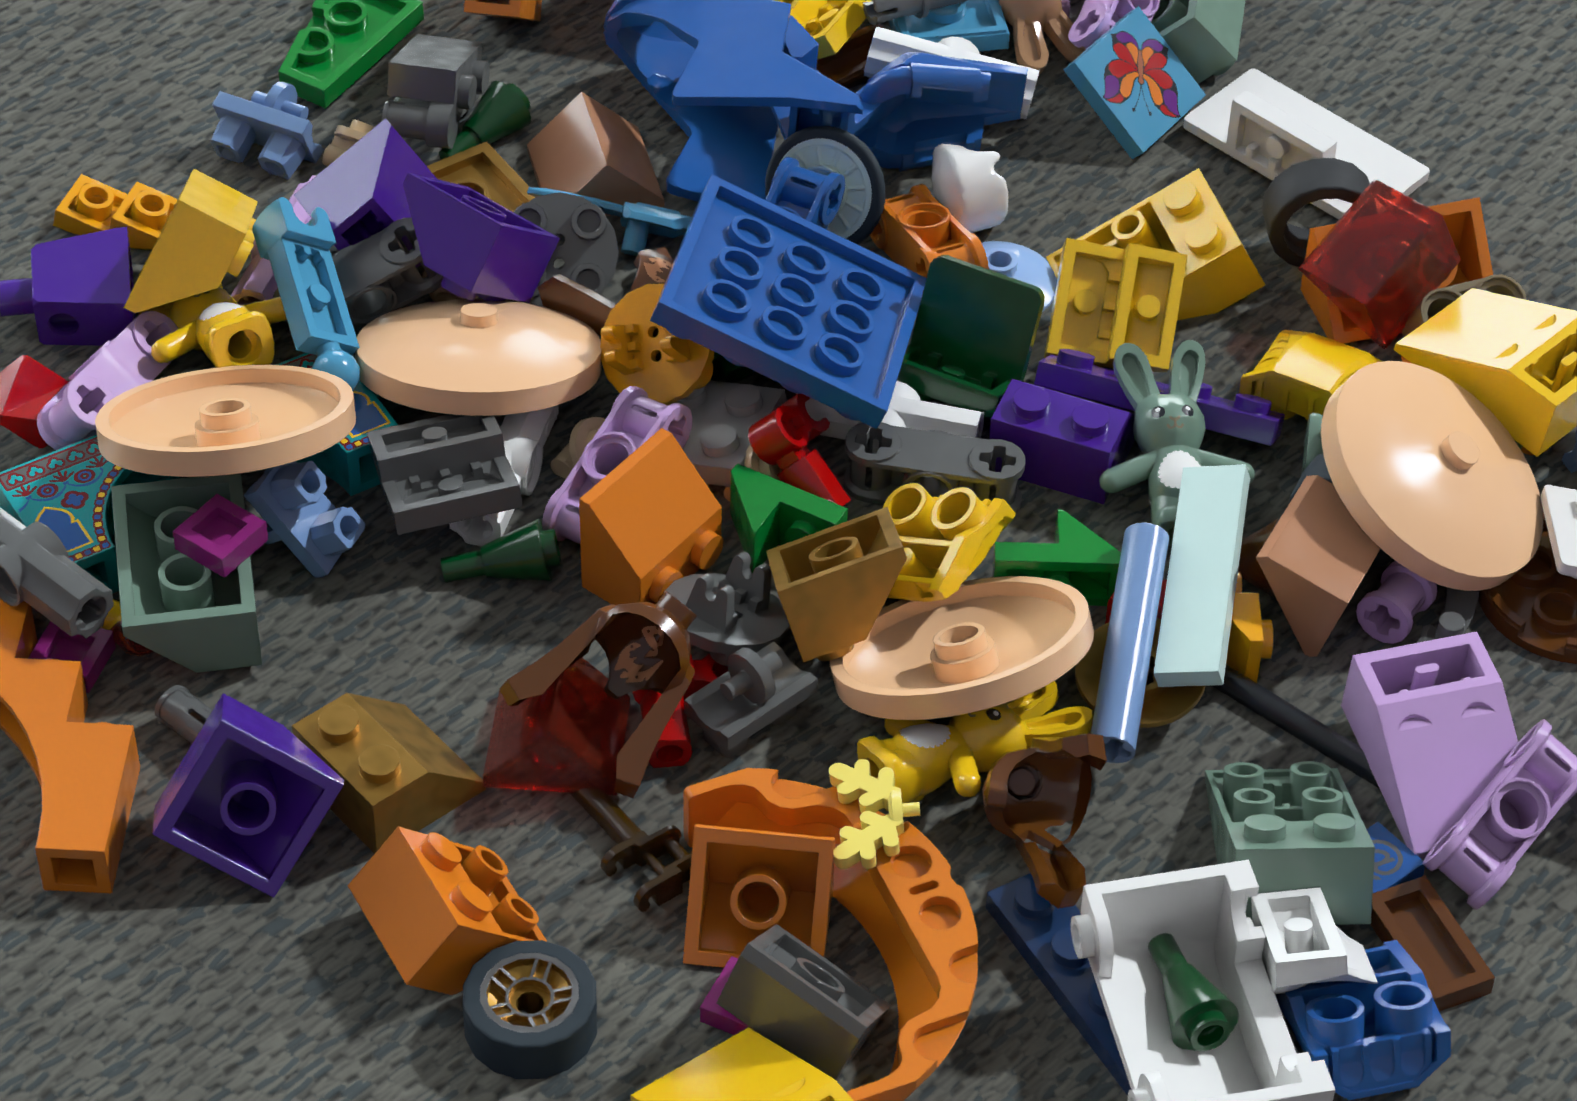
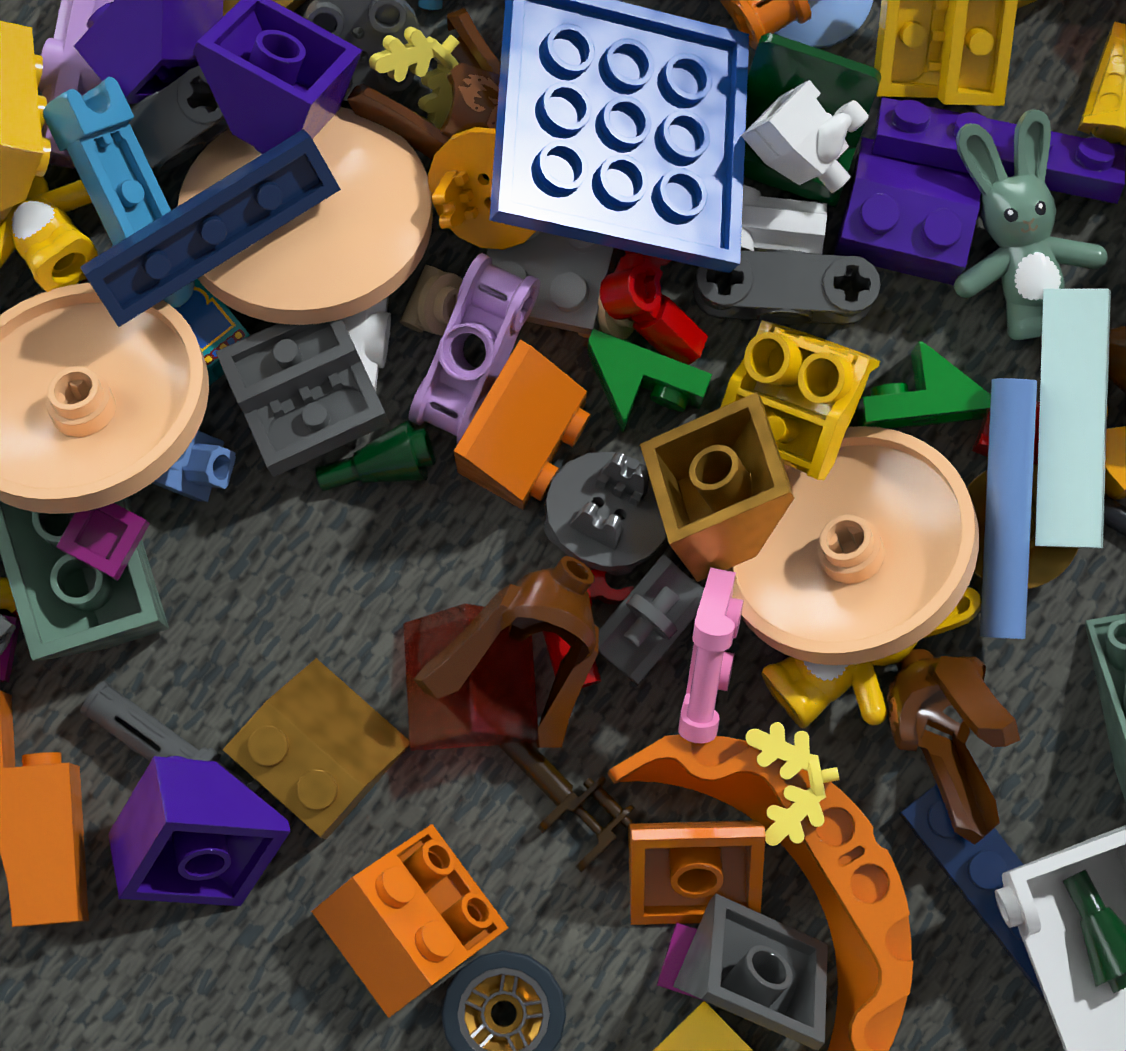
camera: 10 degrees left, 35 degrees up
(385, 312) = (210, 228): none -> dark blue plate
(610, 255) = (417, 57): none -> light yellow animal
(801, 730) = (710, 665): none -> bright pink plate
(964, 336) = (803, 139): none -> white piece

